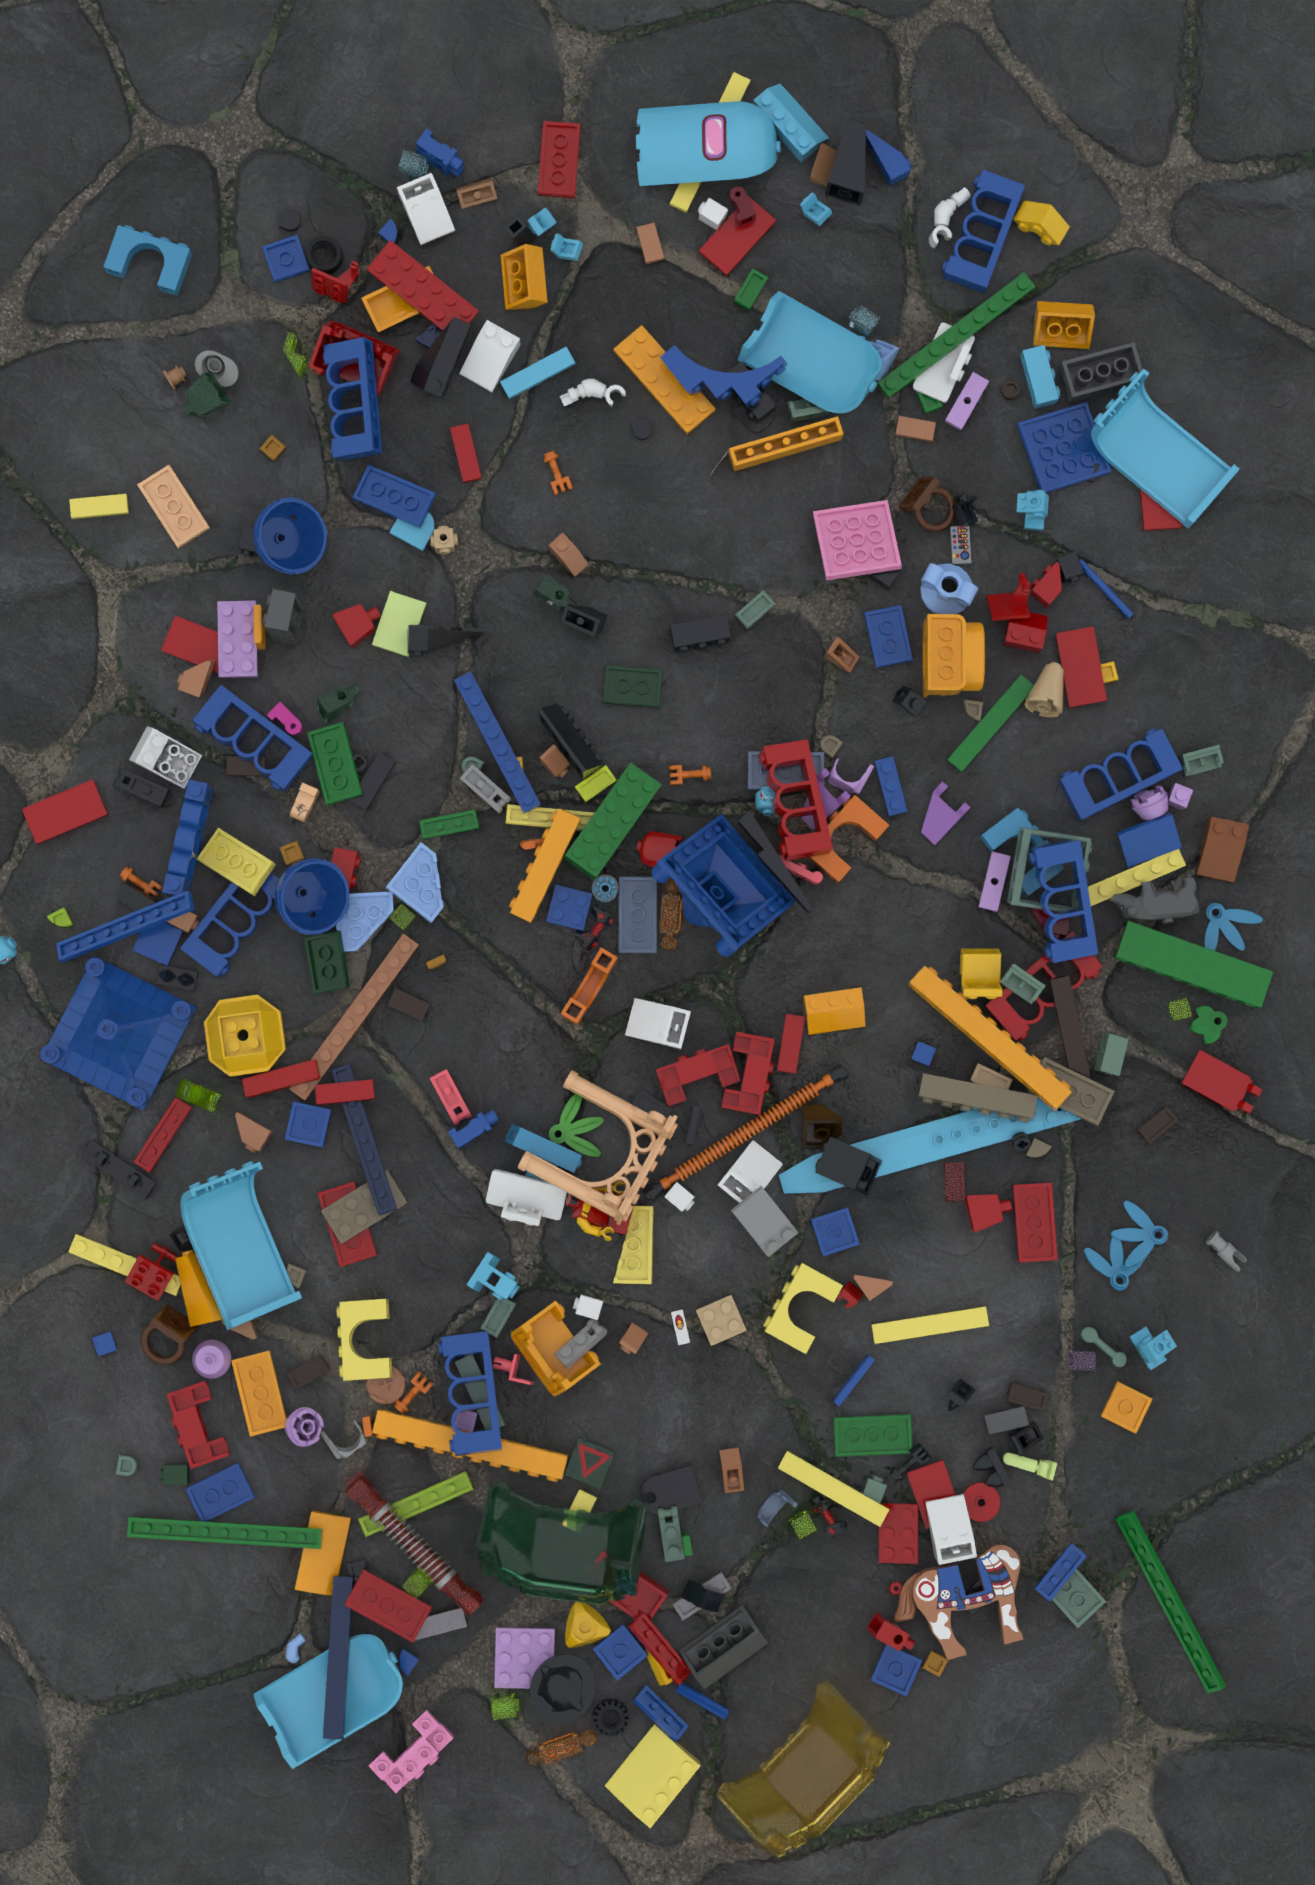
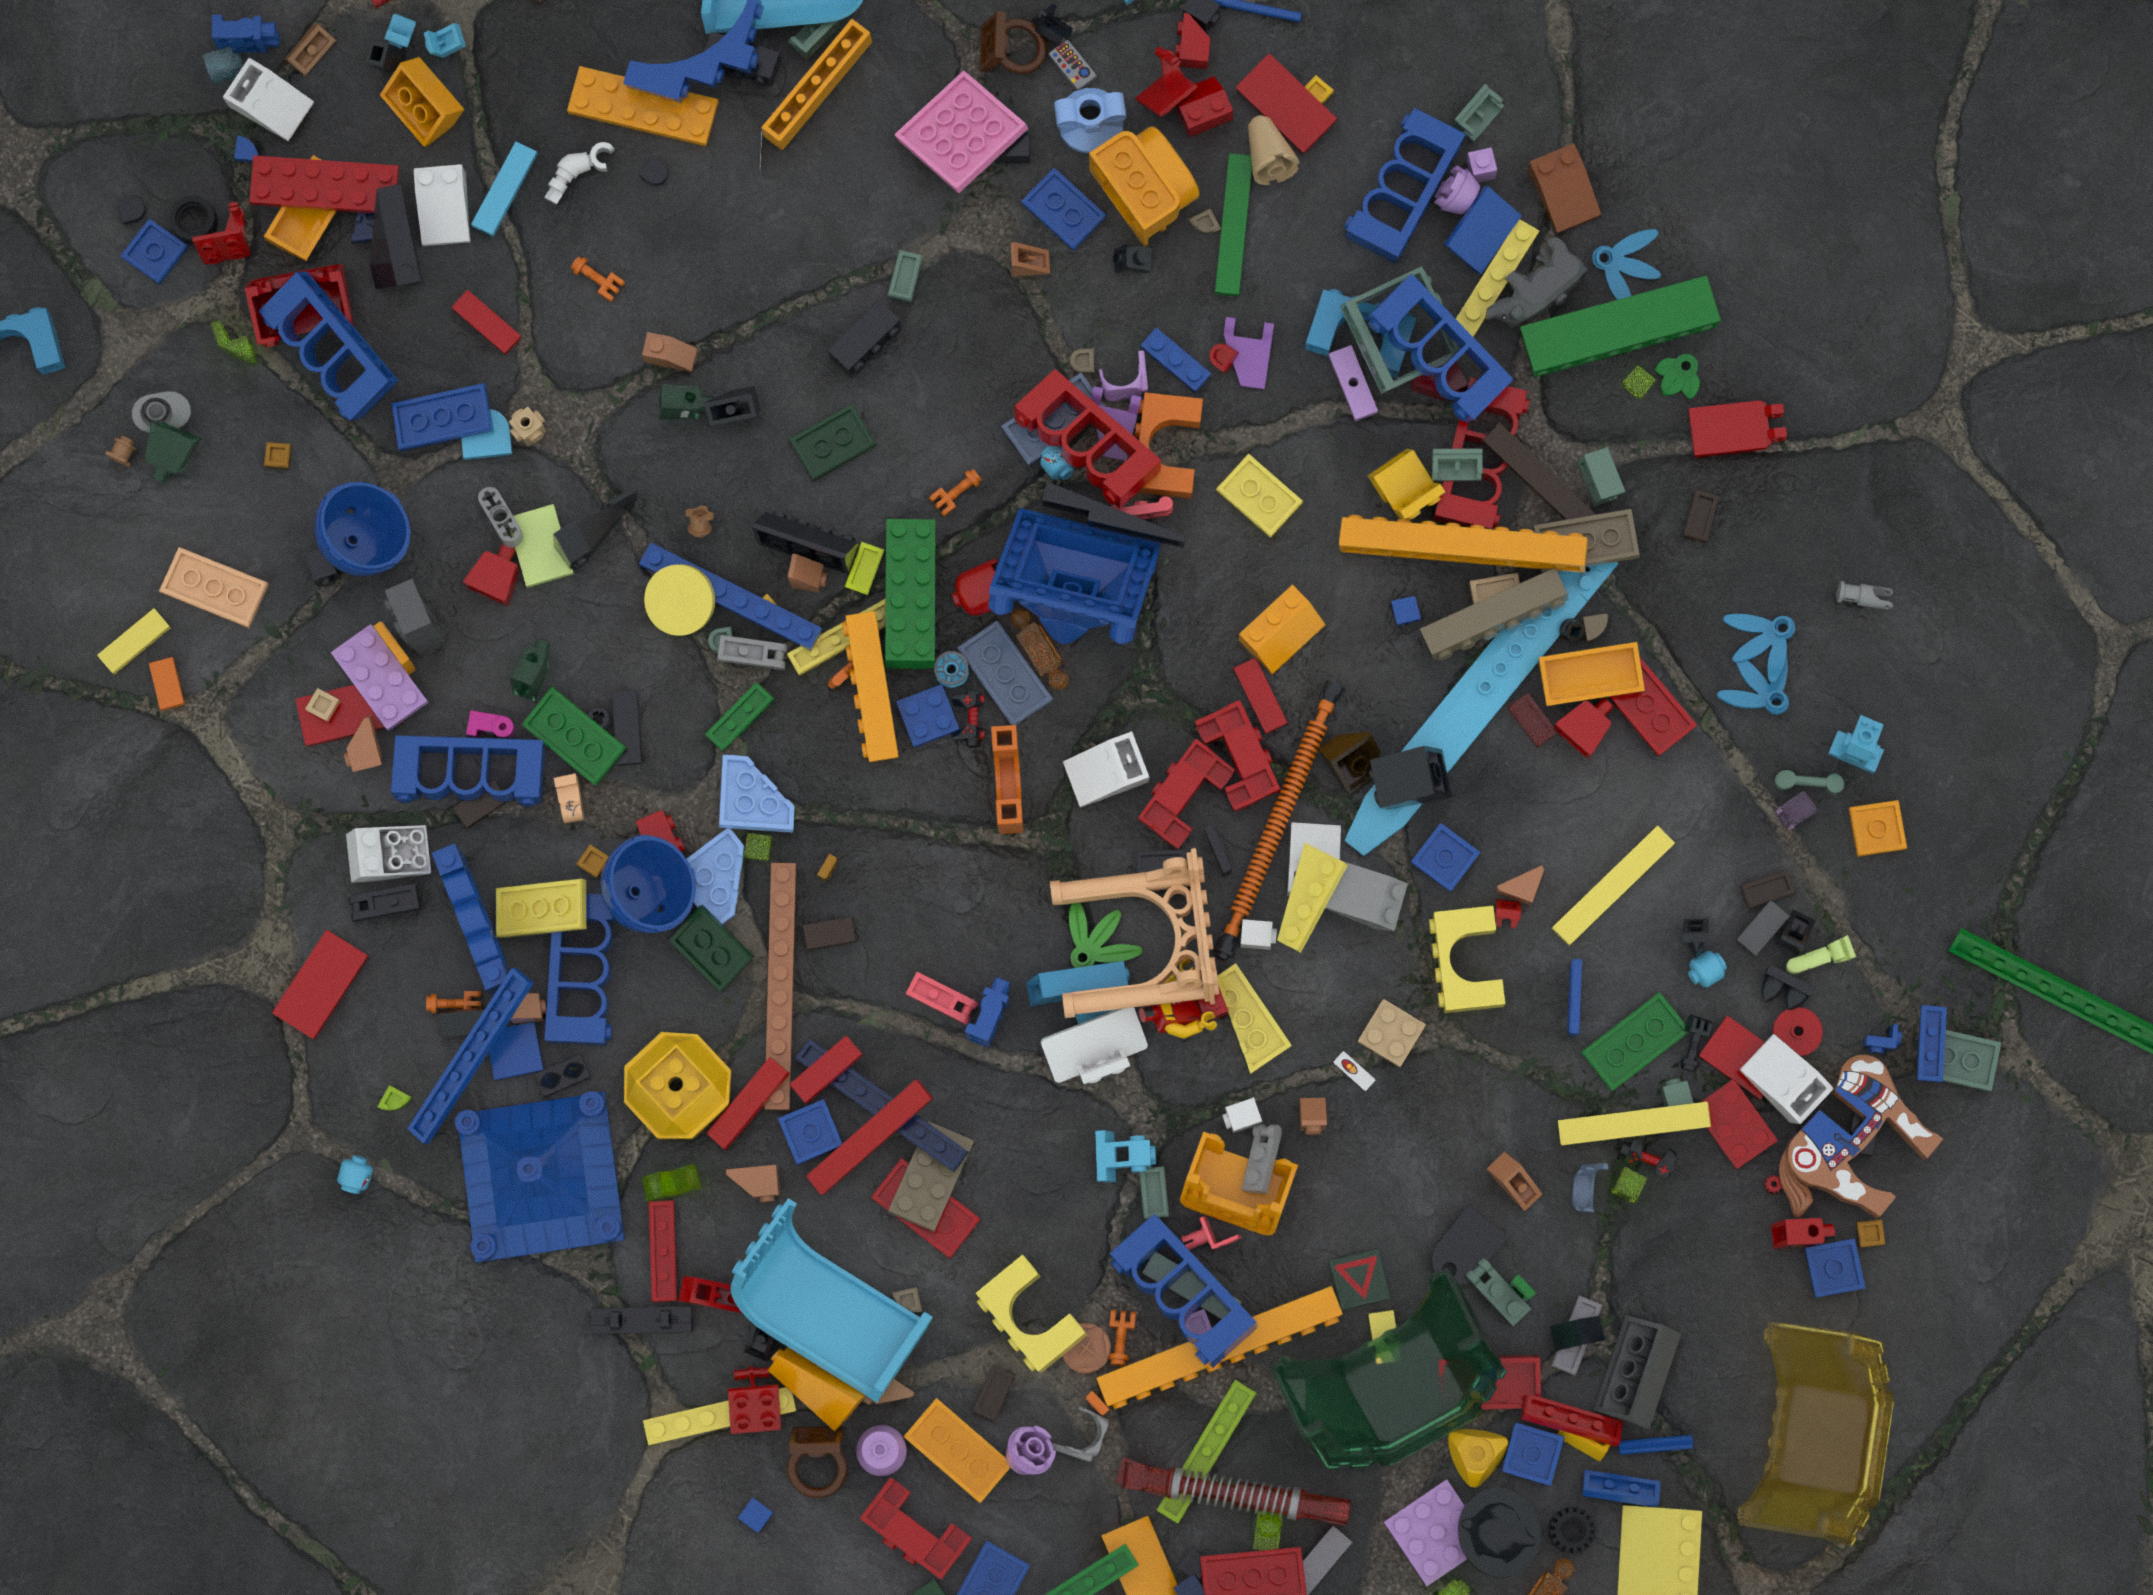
camera: 20 degrees left, 5 degrees down
(101, 548) = (167, 684): none -> orange tile
(170, 1181) = (707, 1294): none -> red slope
(188, 632) = (322, 705): none -> tan plate
(341, 1155) = (869, 1137): none -> red tile
(382, 580) = (501, 507): none -> light grey beam
(463, 722) = (679, 599): none -> light yellow piece
(511, 679) = (699, 521): none -> medium nougat brick
(733, 1195) = (1310, 893): none -> light yellow wing
(882, 912) = (1259, 495): none -> light yellow tile
(922, 805) = (1223, 356): none -> red tile
(951, 1422) = (1707, 969): none -> medium azure head
(1012, 1180) = (1591, 674): none -> light orange slope
(1025, 1547) = (1878, 1044): none -> blue bracket

